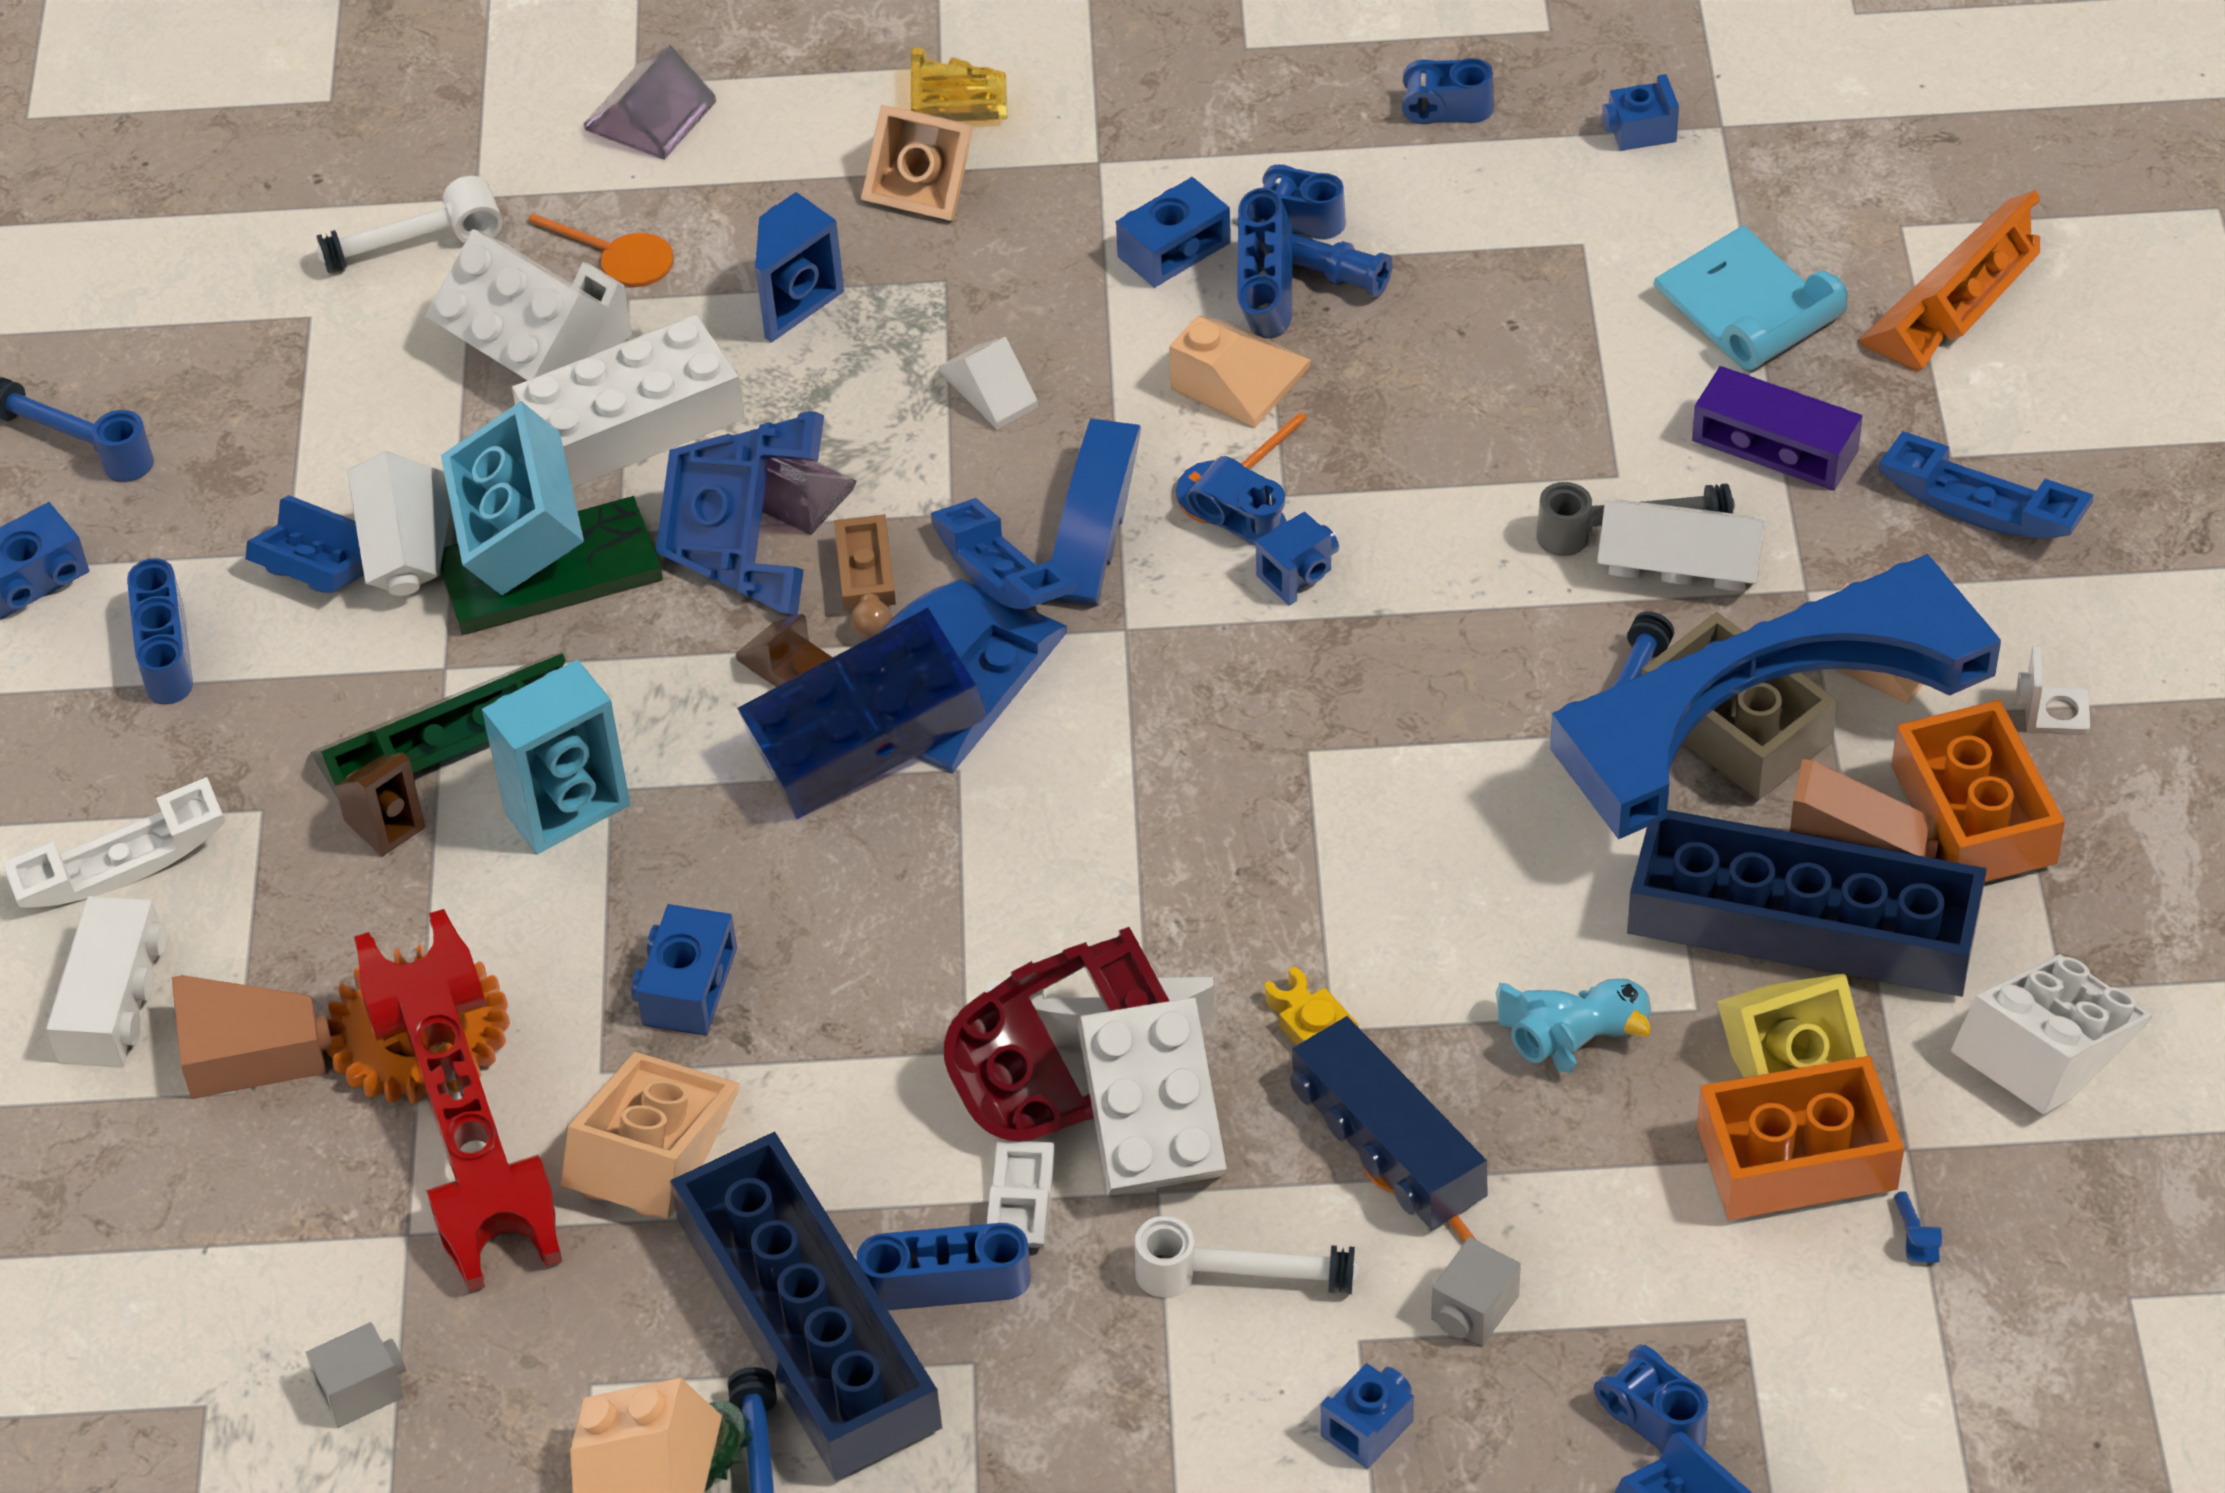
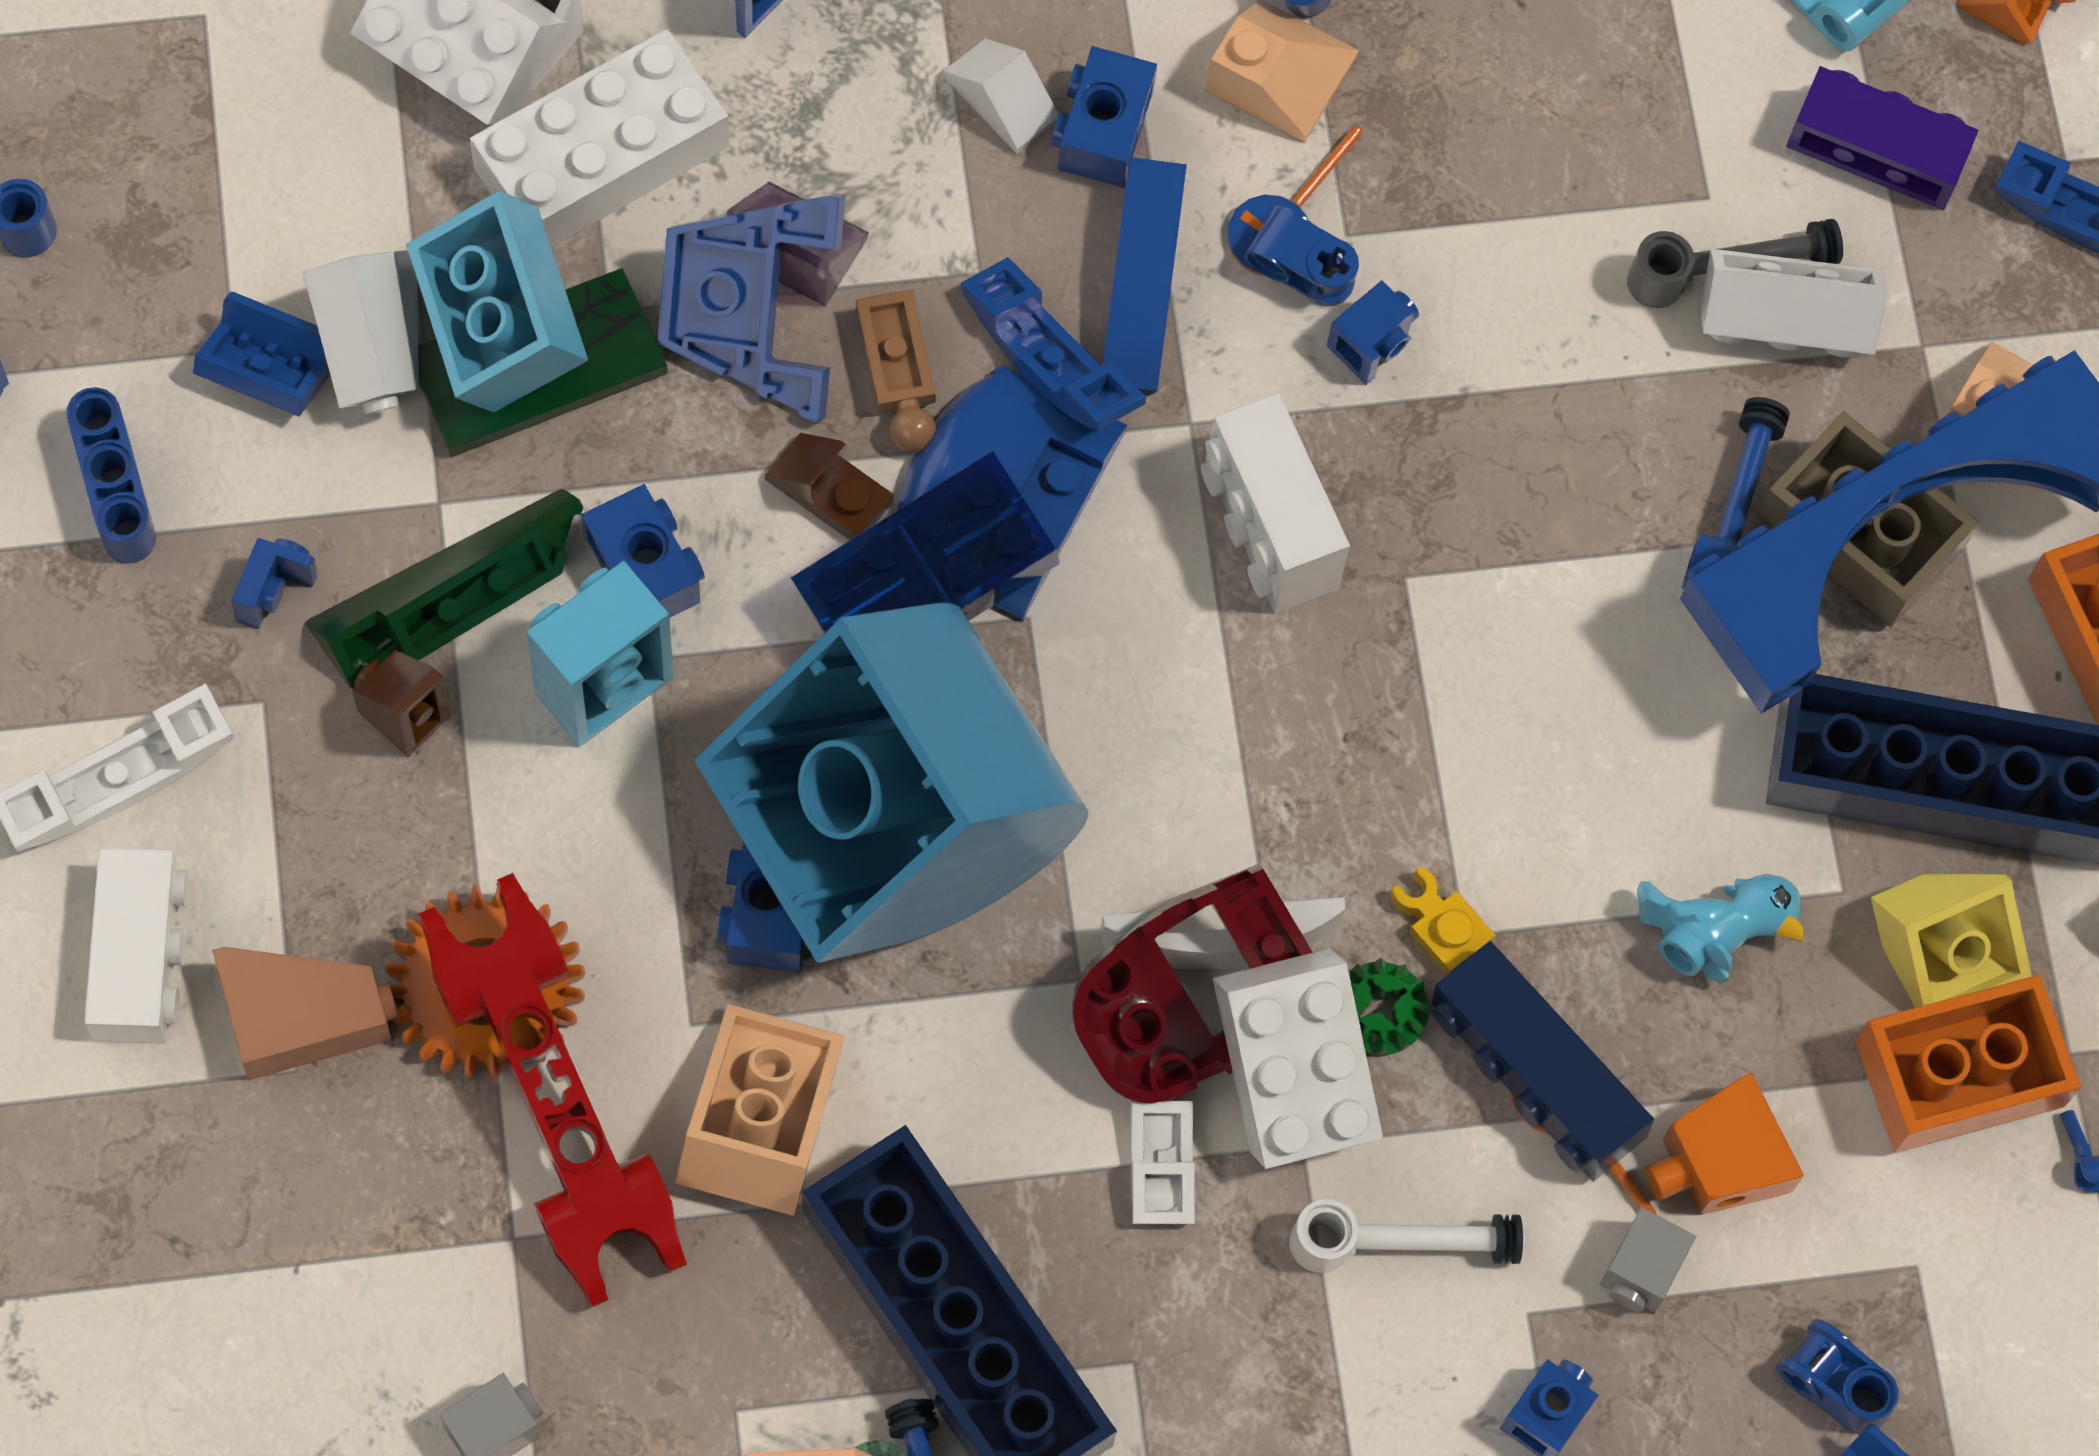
camera: 15 degrees left, 20 degrees up
(277, 707) = (261, 585): none -> blue bracket
(635, 714) = (636, 523): none -> blue brick
(800, 847) = (891, 782): none -> dark azure brick
(947, 1265) = (1107, 1241): blue beam -> none
(1076, 386) = (1104, 147): none -> blue brick
(1186, 674) = (1275, 504): none -> white brick
(1232, 1095) = (1408, 1013): none -> green gear
(1561, 1206) = (1726, 1152): none -> orange torso
(1851, 812) = (2004, 672): nougat slope -> none

